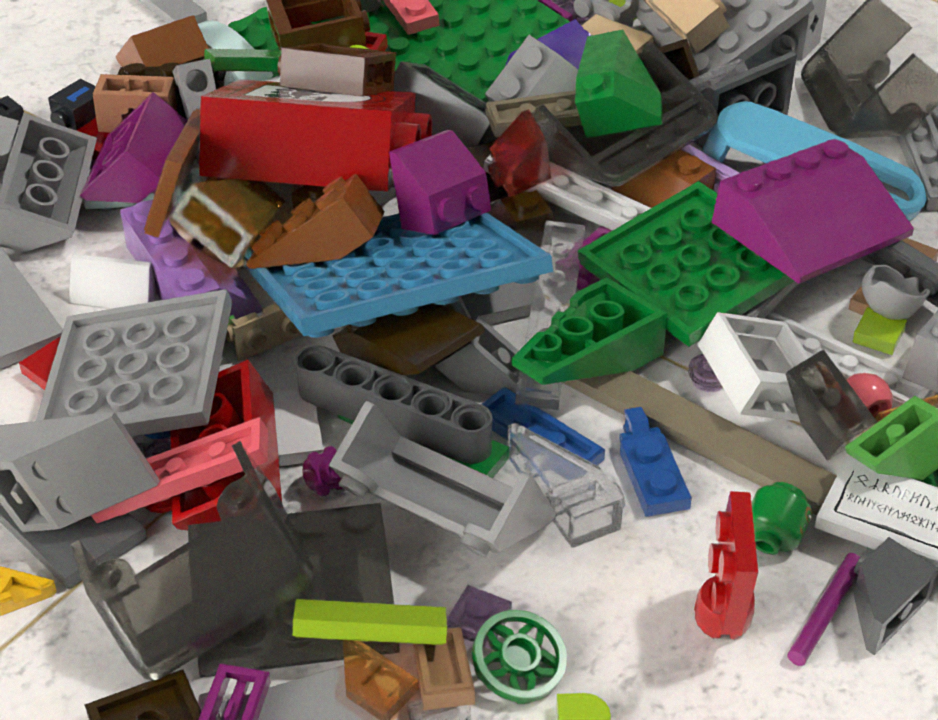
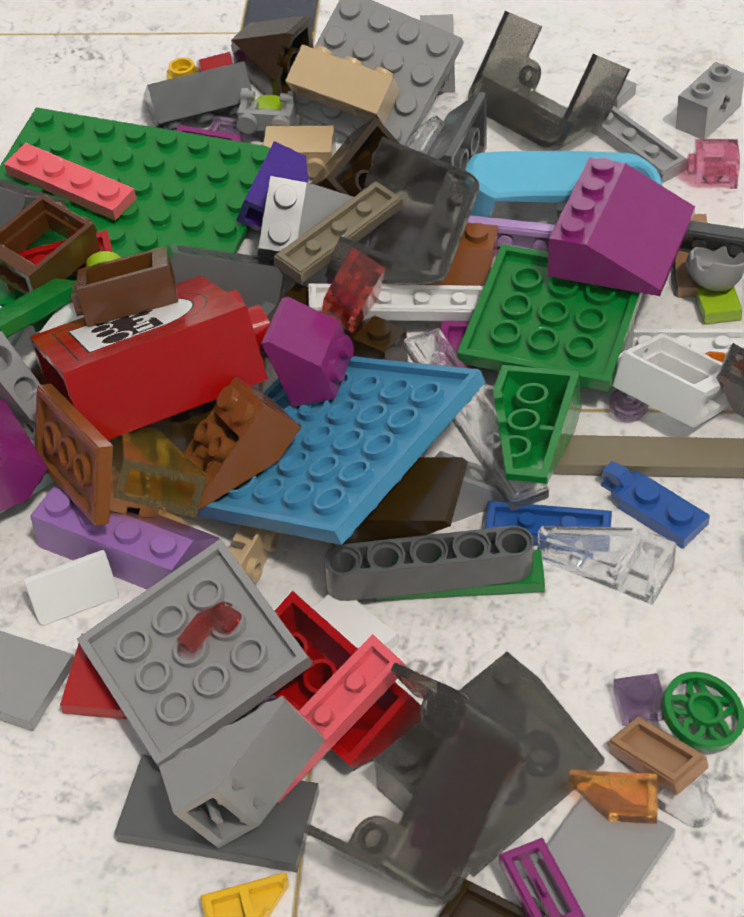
camera: 30 degrees left, 5 degrees up
(162, 344) = (205, 621): none -> clear red arm
(318, 473) = (419, 651): magenta plate -> none
(370, 622) = (583, 751): lime tile -> none
(438, 488) = (549, 614): light grey windscreen -> none
(615, 87) = (377, 190): green wedge -> none

